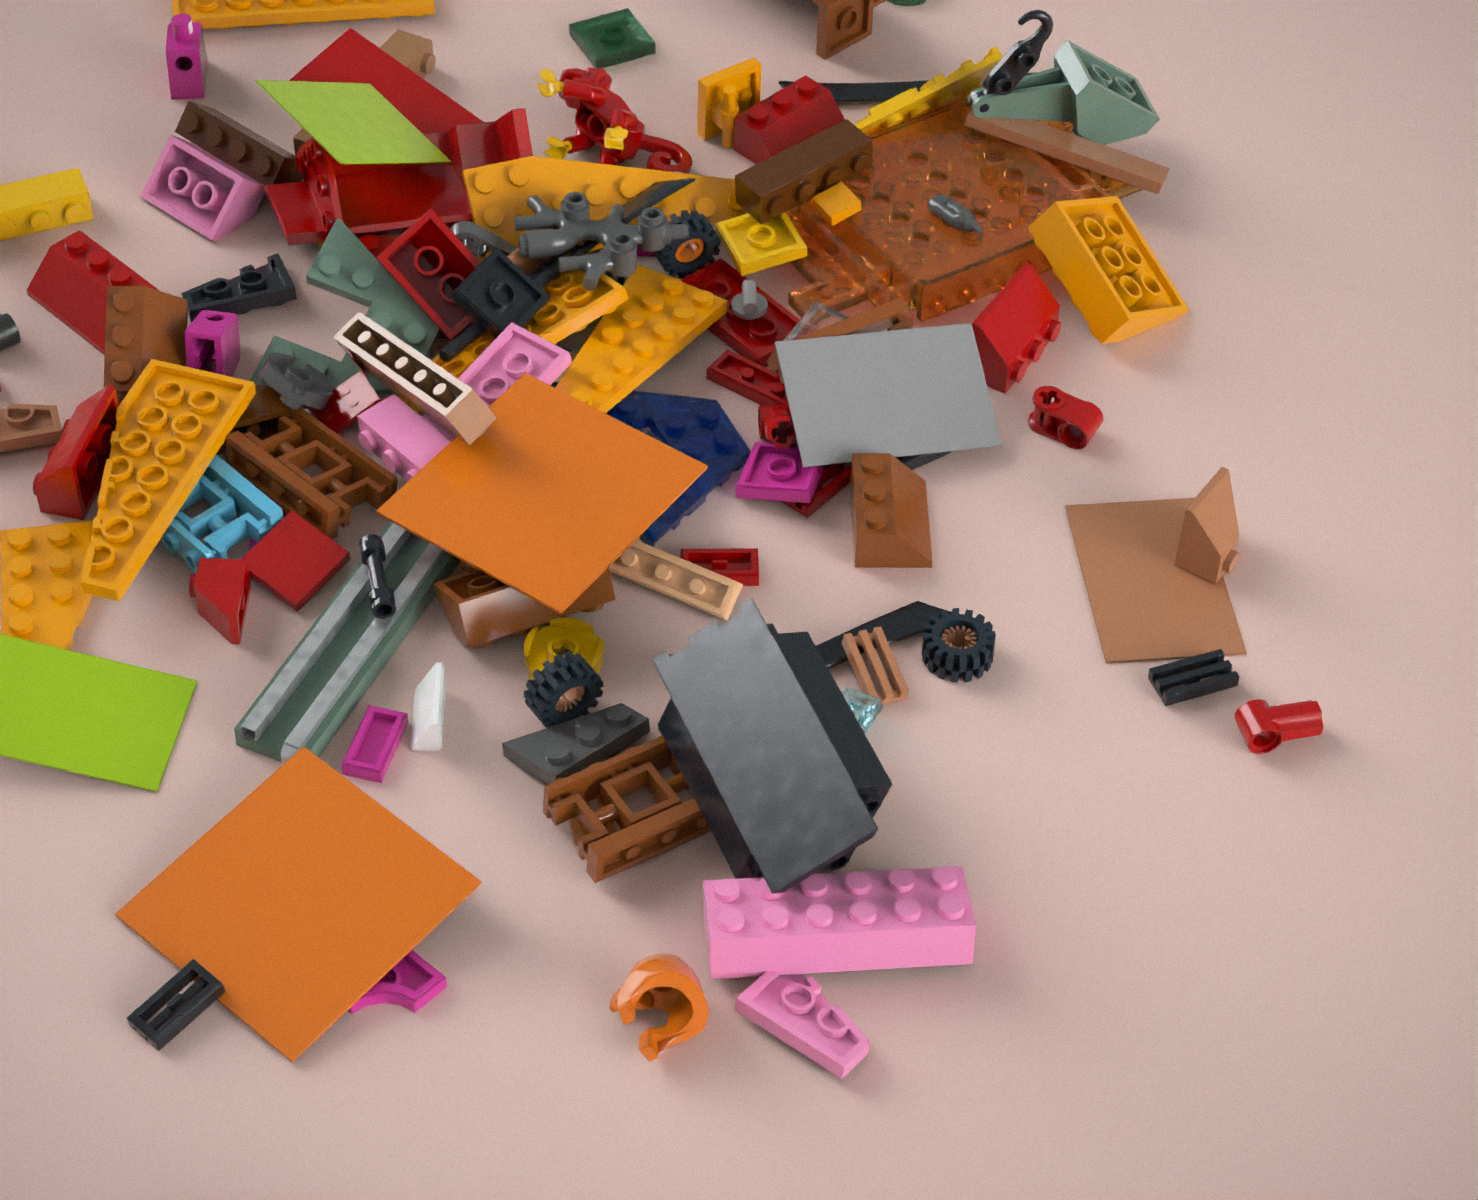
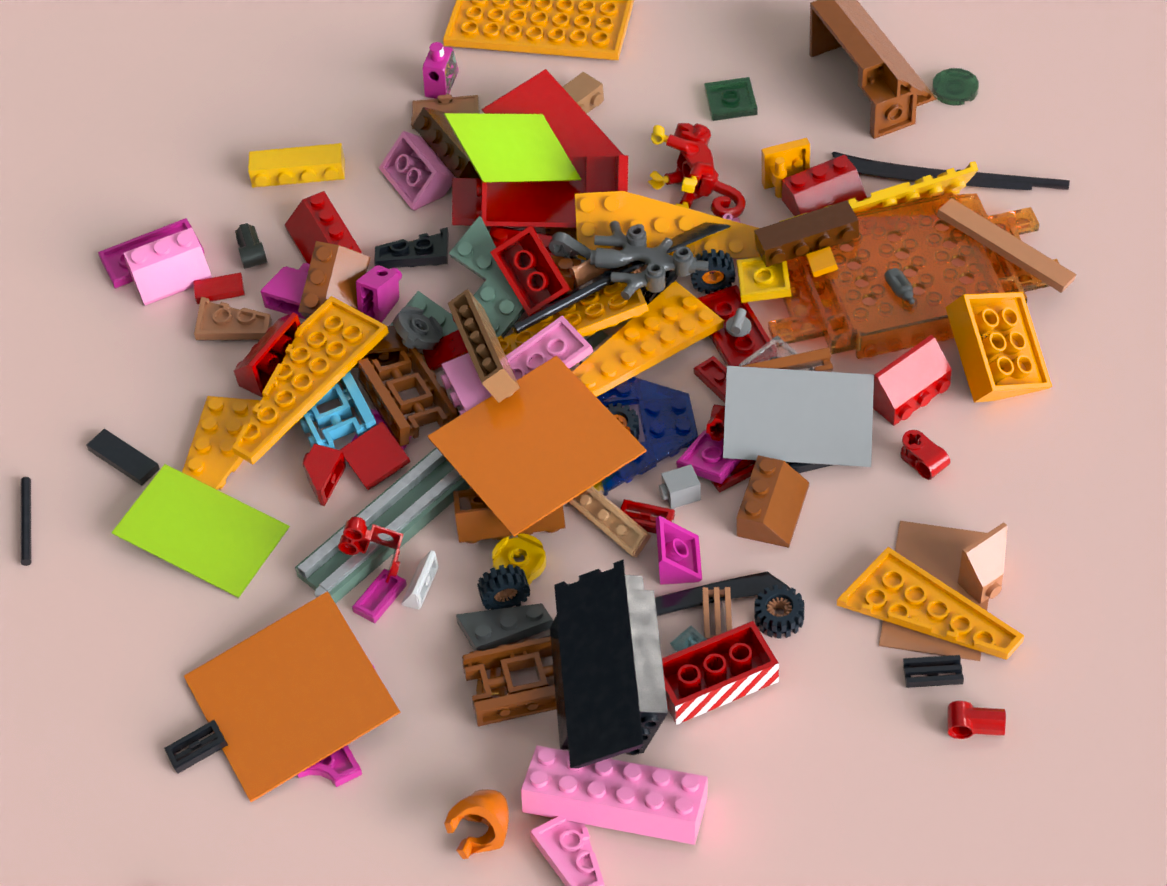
camera: 25 degrees right, 5 degrees up
(71, 369) = (285, 290): none -> dark pink torso
(236, 103) = (447, 104): none -> nougat door
(329, 662) = (357, 539): none -> red piece
(381, 596) = (413, 497): black bar -> none
(499, 294) = (563, 292): black tile -> none
(755, 516) = (680, 486): none -> light grey brick
(784, 597) = (677, 553): none -> dark pink slope
(926, 726) = (718, 672): none -> red brick
(1080, 89) = (1033, 204): sand green slope -> none
(1130, 593) = (914, 599): none -> light orange wing

